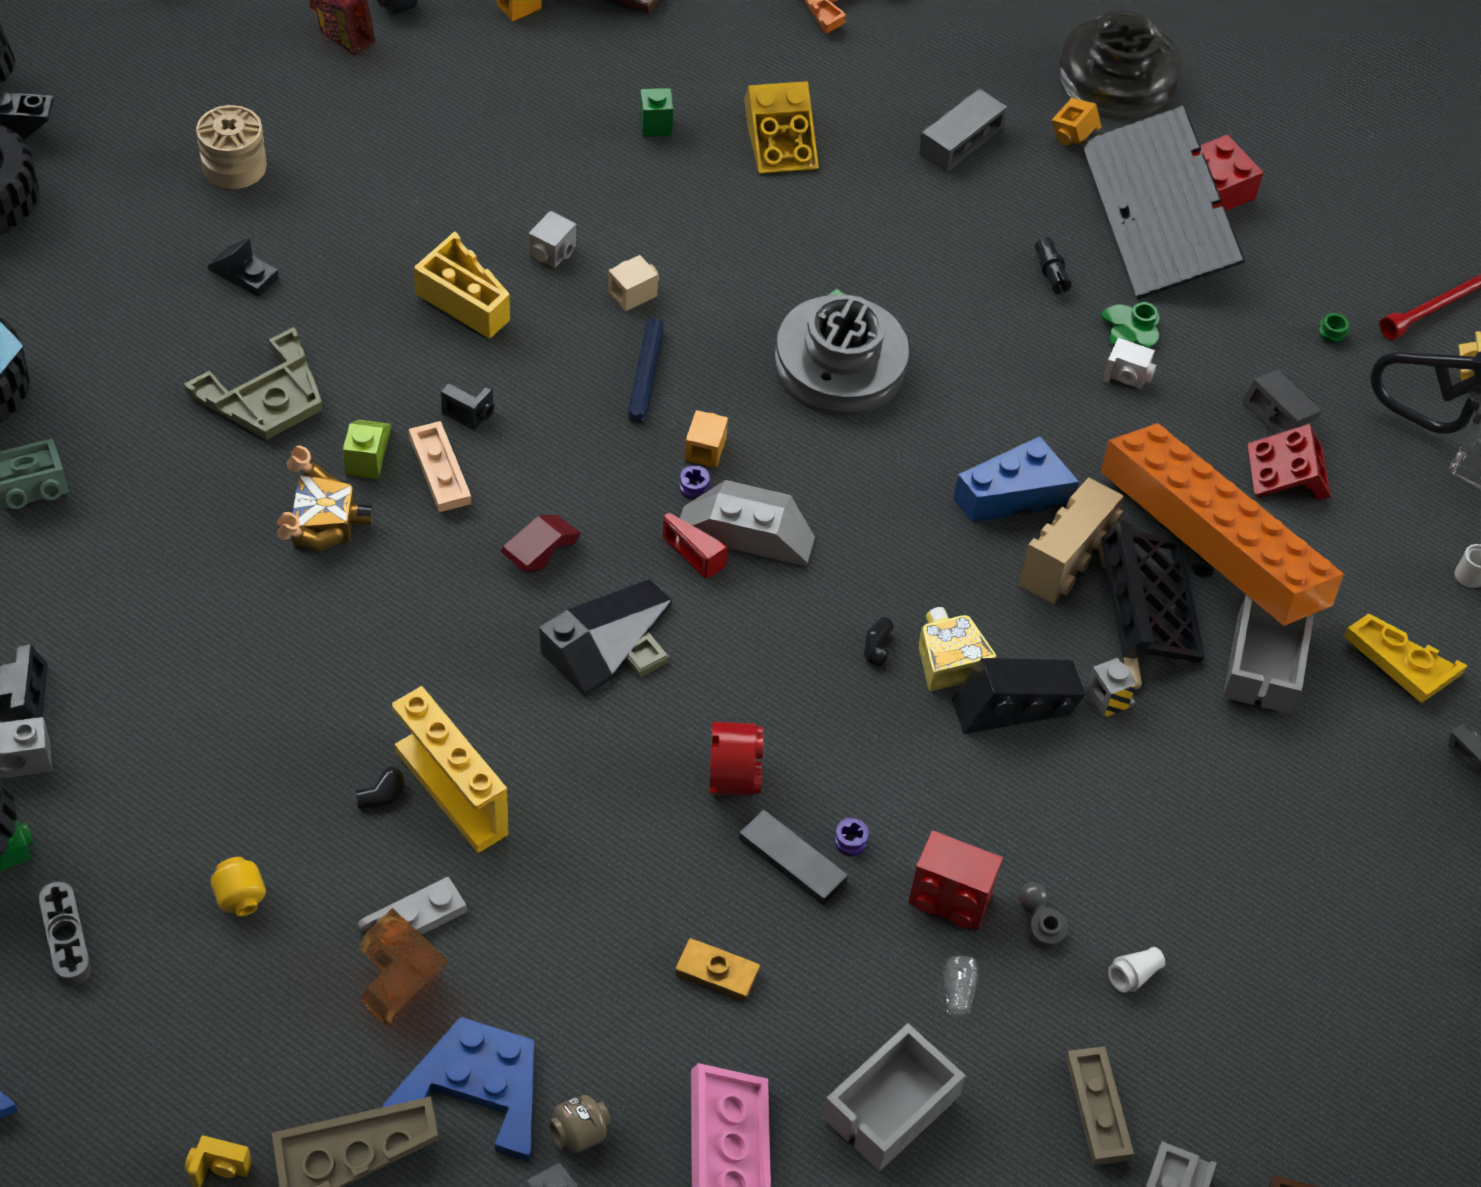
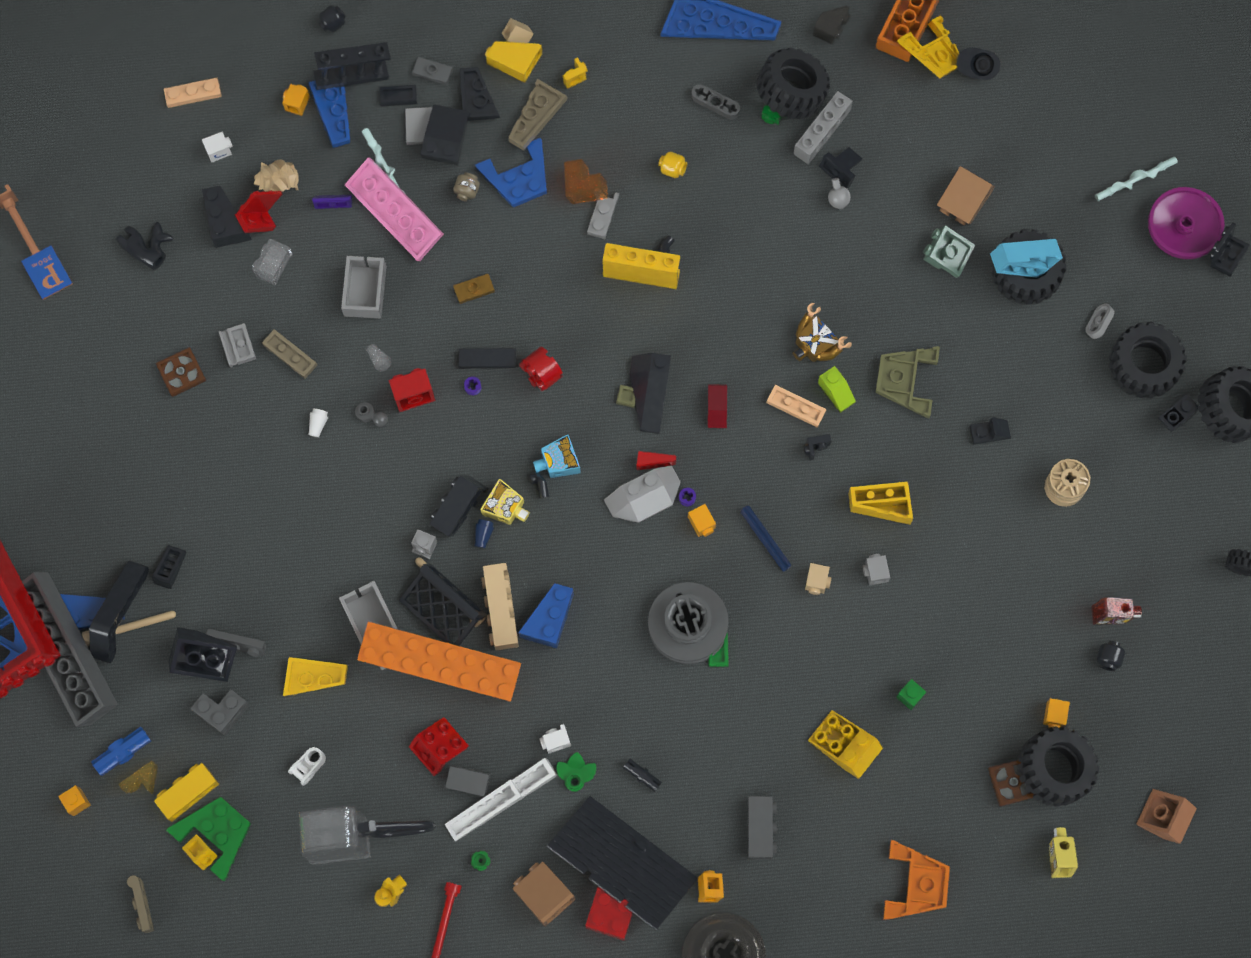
camera: 145 degrees right, 20 degrees up
(71, 650) = (838, 196): none -> light grey piece
(821, 646) = (558, 459): none -> torso
(1014, 641) = (483, 532): none -> dark blue cone
(1247, 361) = (501, 799): none -> white slope
(1285, 234) = (543, 893): none -> medium nougat slope

